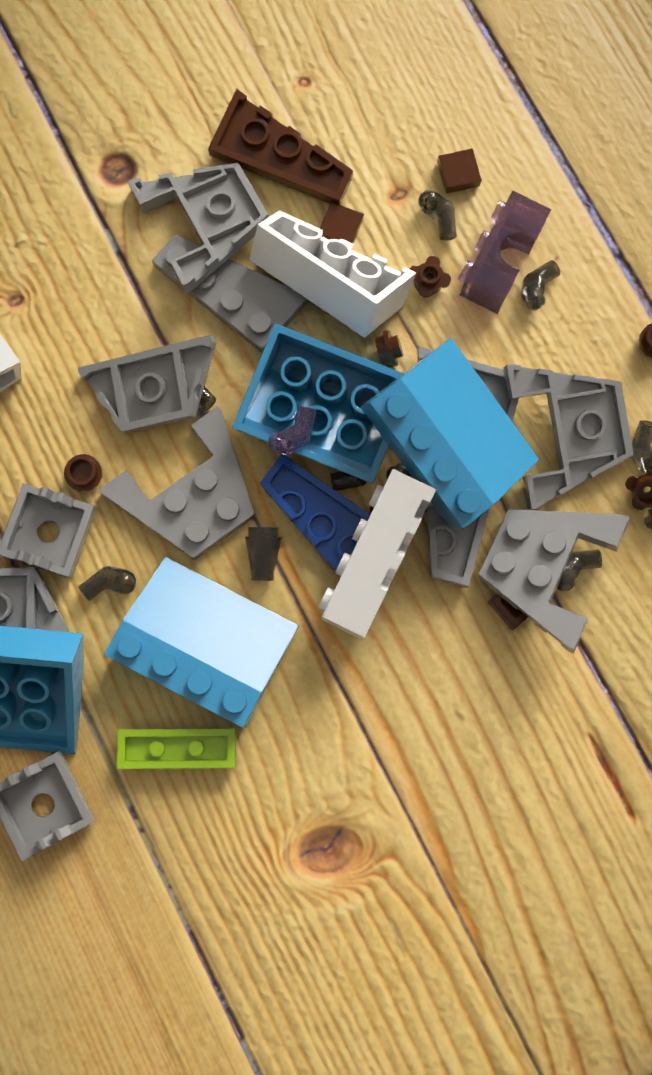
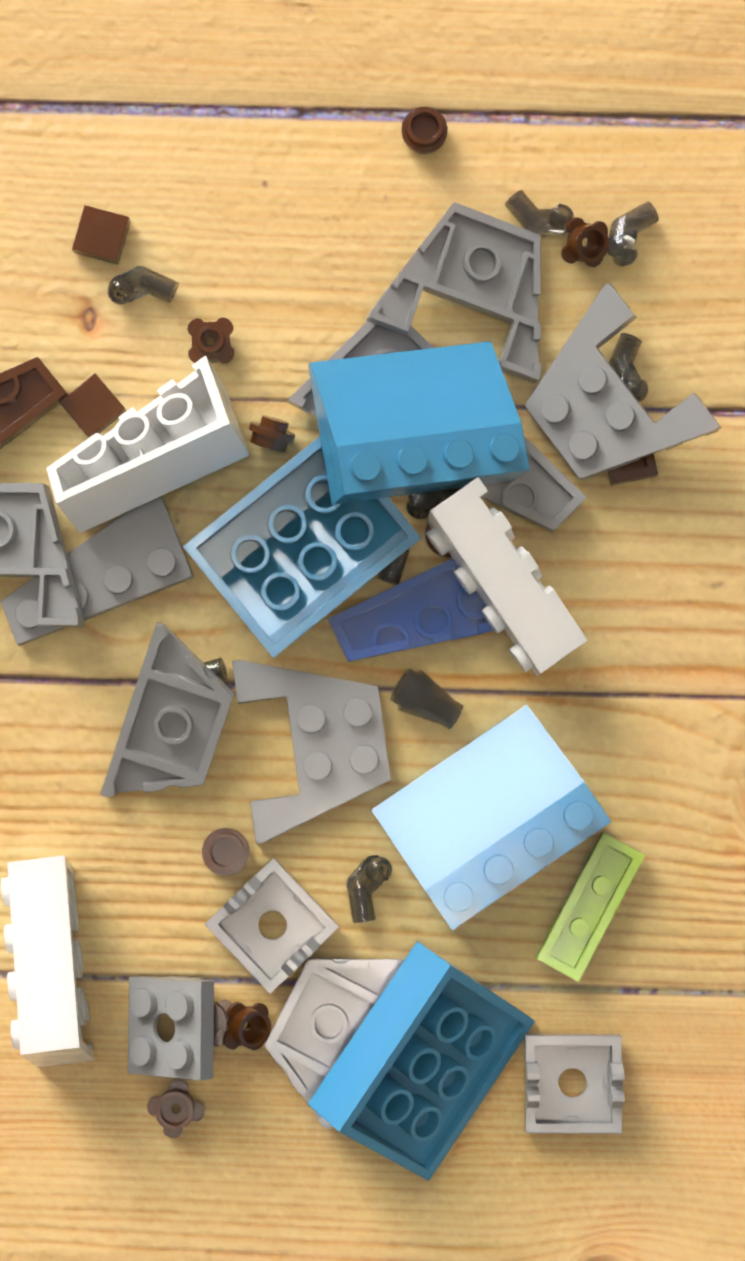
camera: 55 degrees left, 5 degrees up
(294, 436) = (326, 593): clear purple arm -> none
(516, 227) = (204, 209): arch -> none
(534, 284) = (284, 228): clear smoke arm -> none

